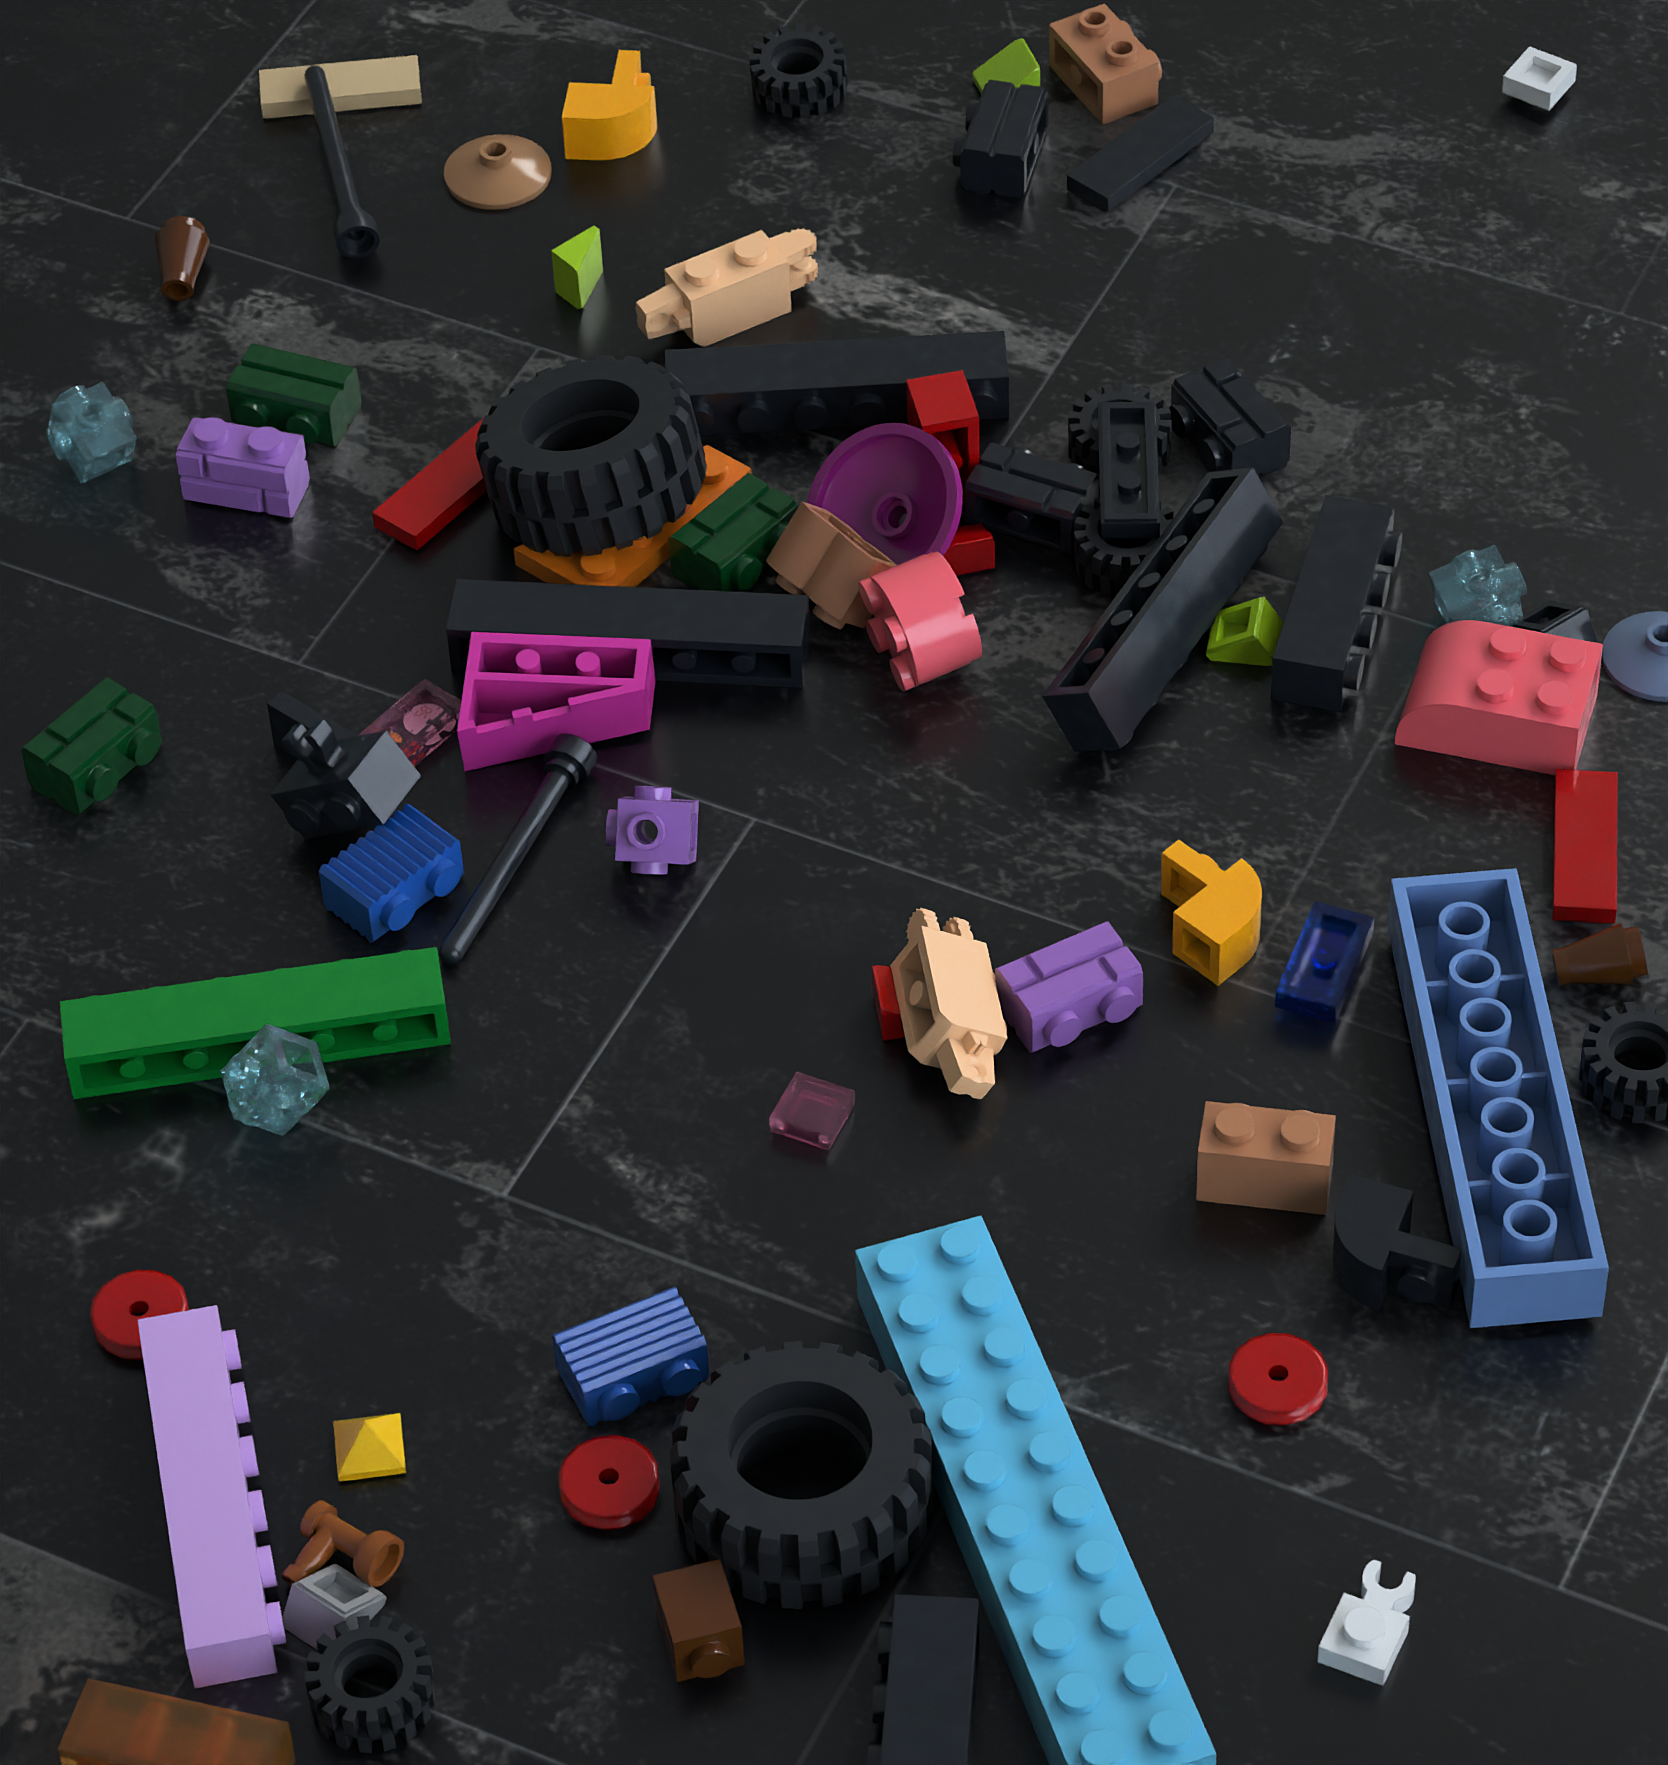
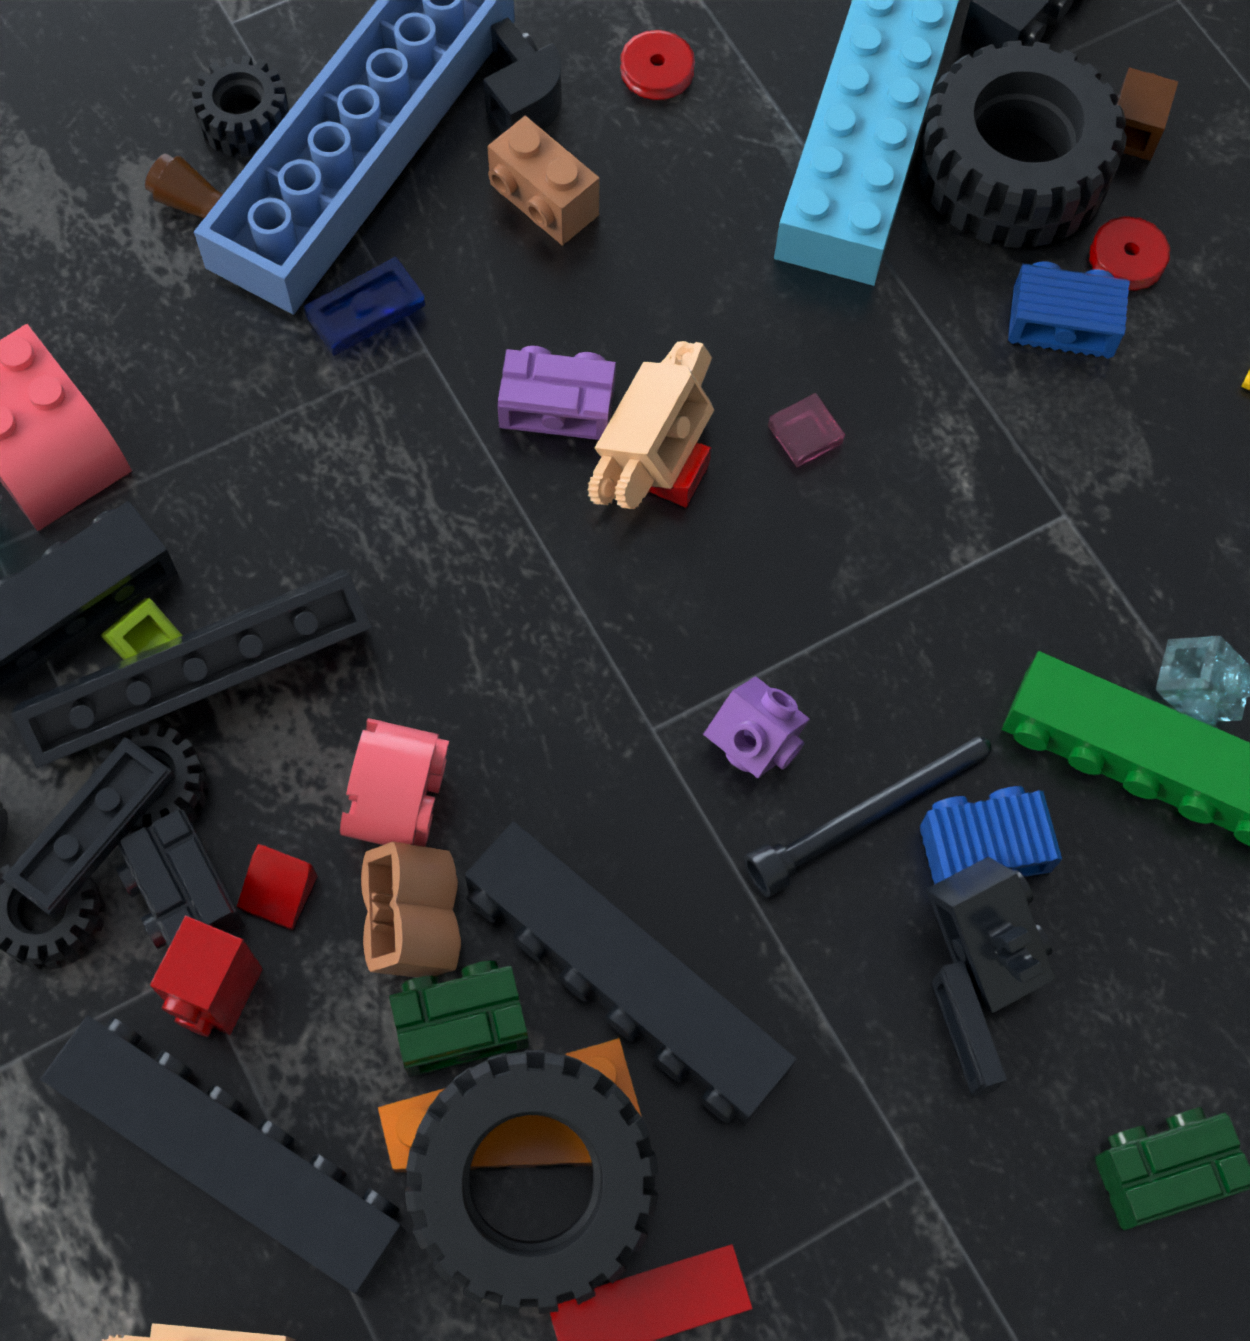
camera: 150 degrees left, 20 degrees up
(419, 720) = (877, 1010): clear pink tile -> none
(540, 686) = (745, 930): dark pink wedge -> none
(883, 476) = (318, 890): magenta dish -> none
(1217, 911) = (398, 378): light orange brick -> none
(1585, 846) = (99, 288): red tile -> none

